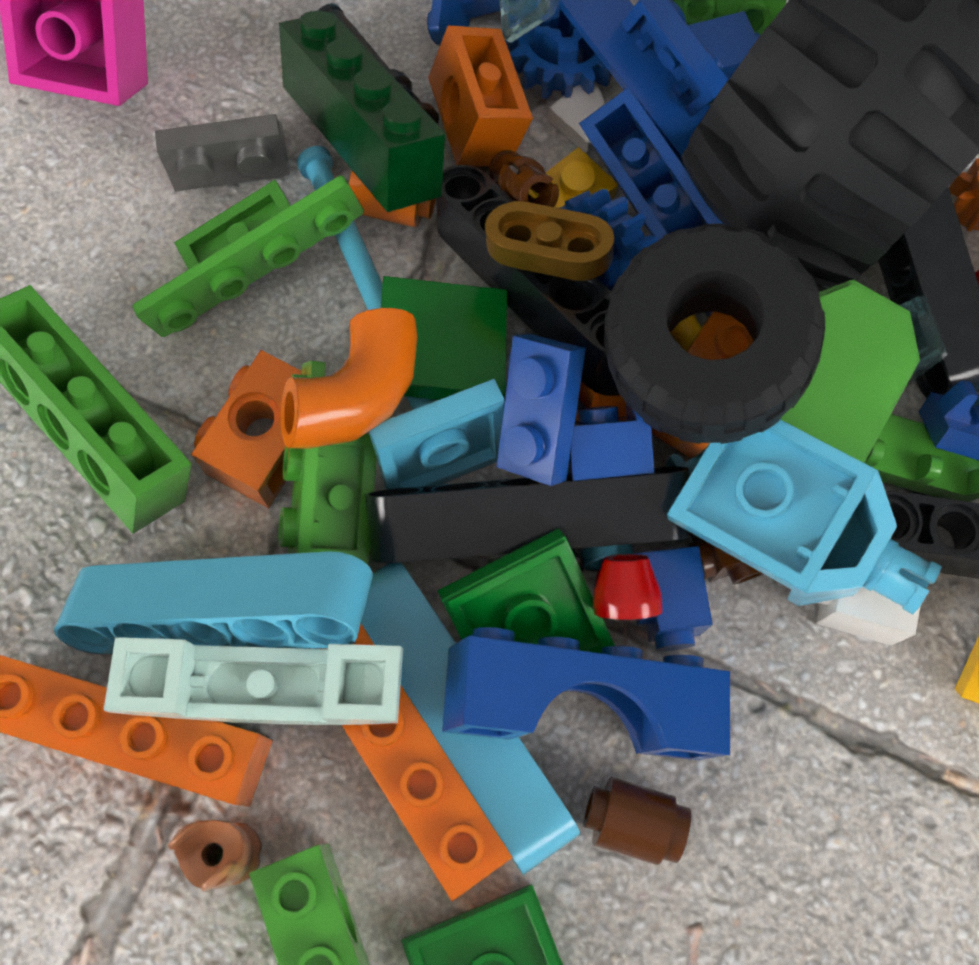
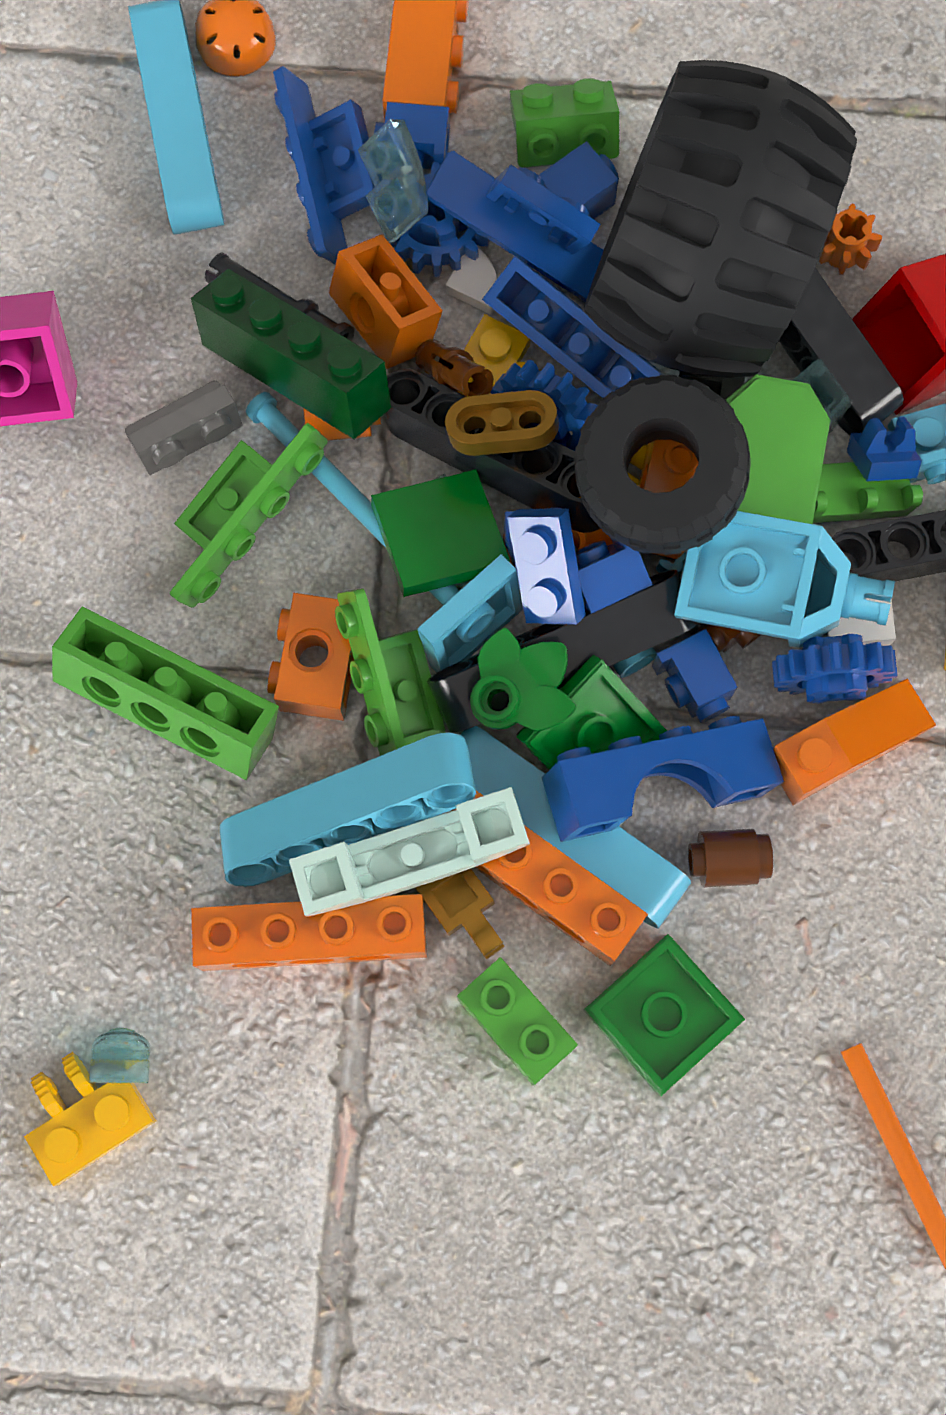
camera: 15 degrees left, 5 degrees up
(196, 850) = (421, 976): nougat piece -> none
(305, 760) = (459, 903): none -> pearl gold plate
(360, 393) = (403, 601): orange cylinder -> none
(473, 528) = (528, 678): none -> green plate
(627, 588) = (662, 682): red bar -> none
(822, 732) = (850, 740): none -> orange slope
(834, 643) = (834, 668): none -> blue gear

